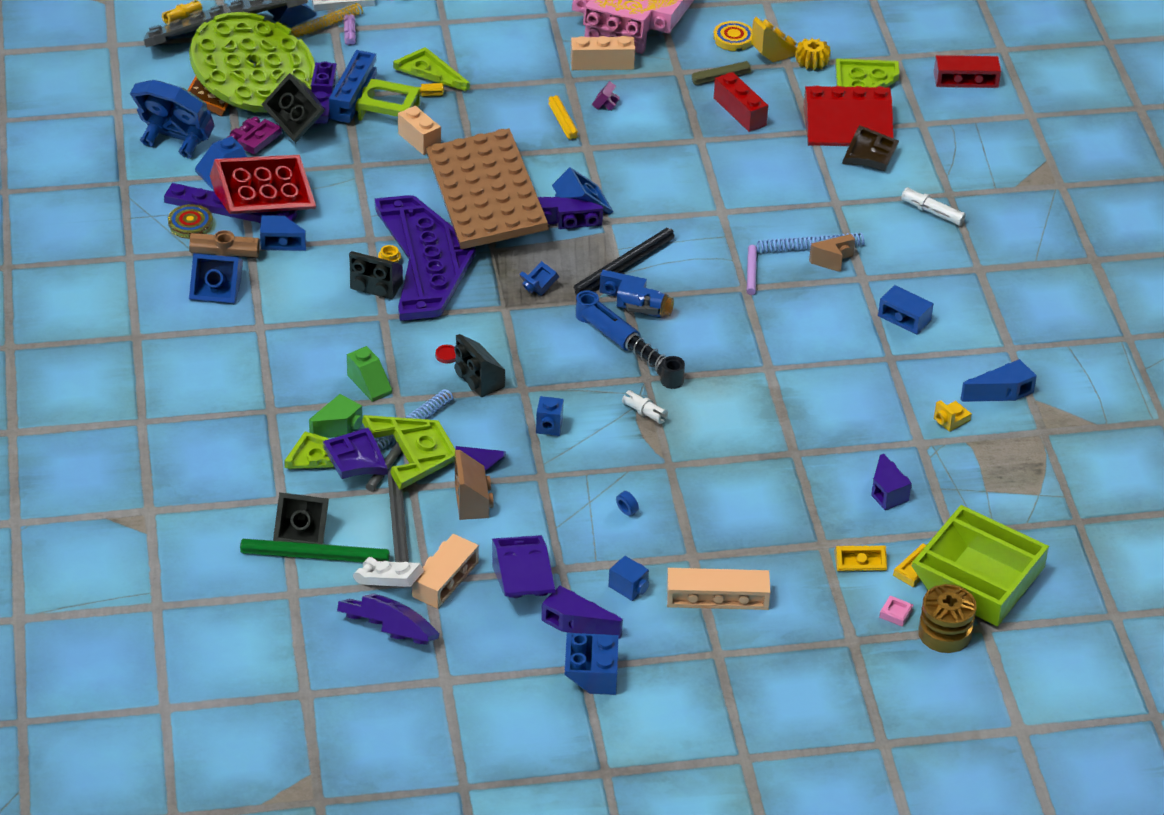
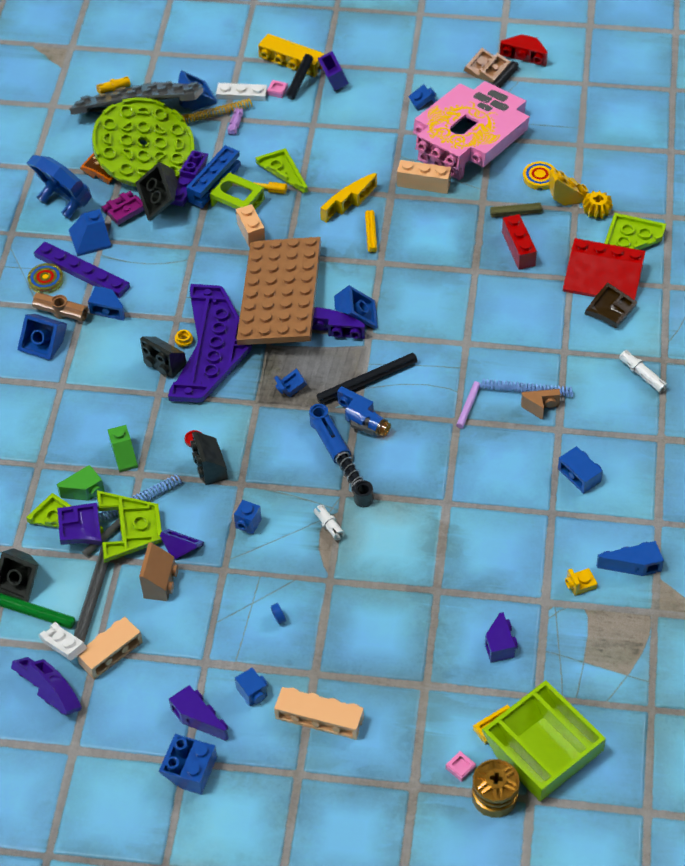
camera: 20 degrees right, 10 degrees up
(262, 184) = (106, 258): red slope -> none
(522, 566) = (166, 660): dark purple slope -> none
(523, 84) = (351, 195): none -> yellow slope
(606, 97) = (411, 217): magenta tile -> none
(860, 558) = (450, 708): yellow slope -> none

